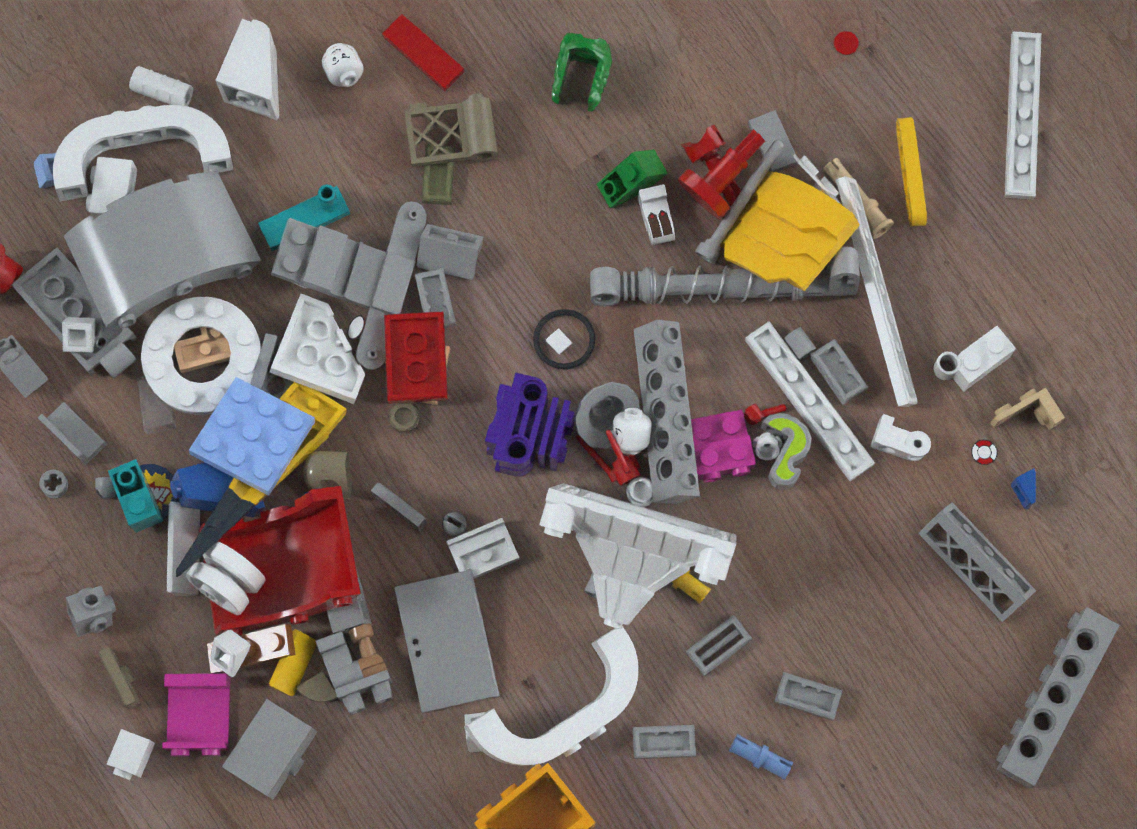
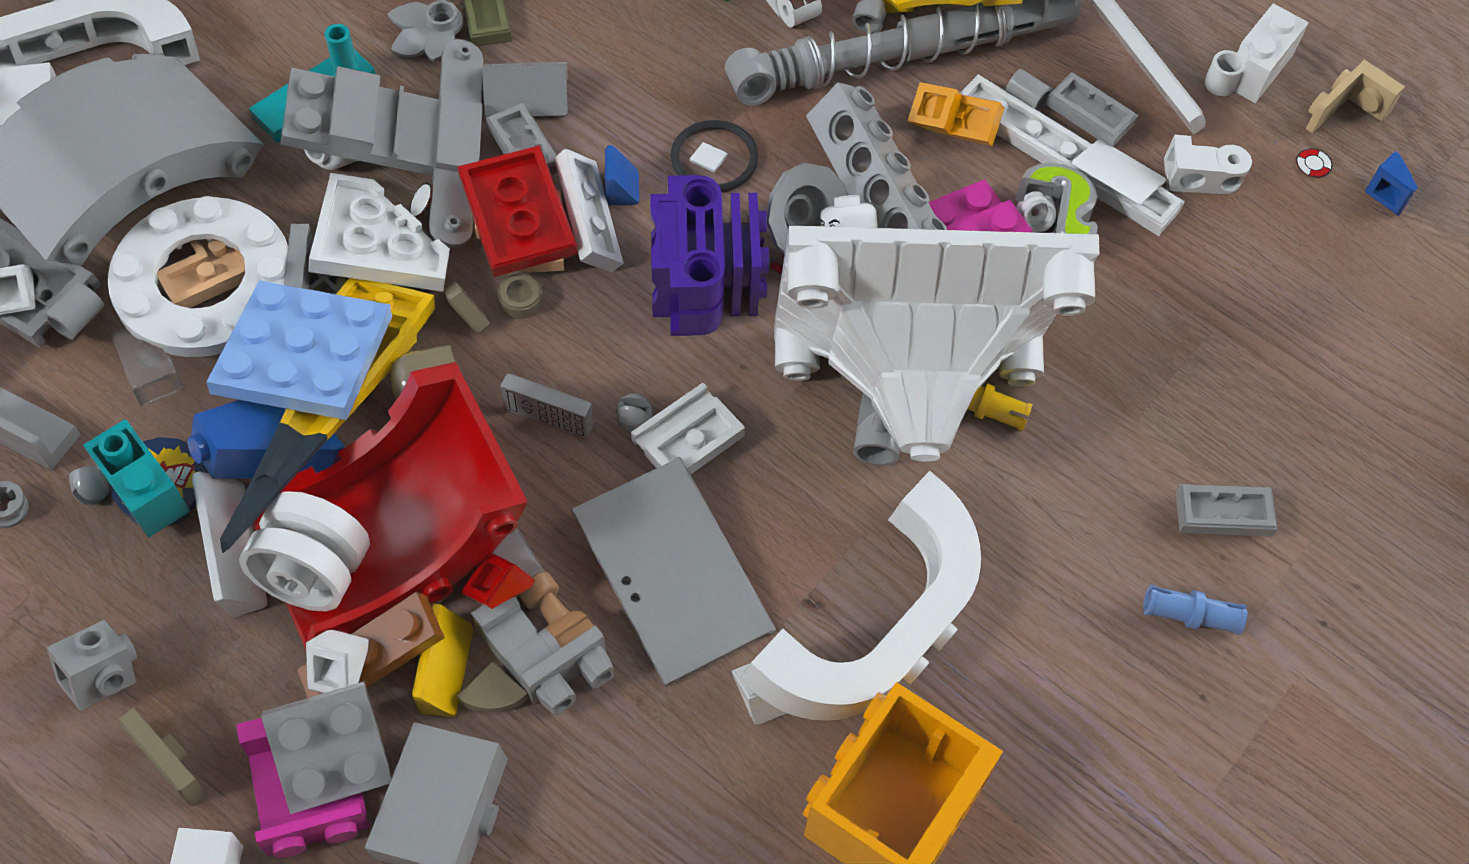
camera: 20 degrees left, 15 degrees down
(213, 701) = (326, 747): none -> light grey plate
(335, 626) = (496, 582): none -> red slope
(365, 418) = (466, 307): none -> dark tan tile
(389, 185) = (425, 28): none -> light grey plate
(464, 366) = (588, 211): none -> white plate
(494, 344) = (620, 178): none -> blue slope
(664, 741) = (1046, 626): light grey plate -> none
(698, 660) = (1052, 505): light grey tile -> none
(740, 351) = (956, 114): none -> light orange slope
(755, 415) = (1004, 183): red hand -> none
(835, 430) = (1119, 171): none -> white sticker
(986, 559) = (1379, 272): light grey fence -> none

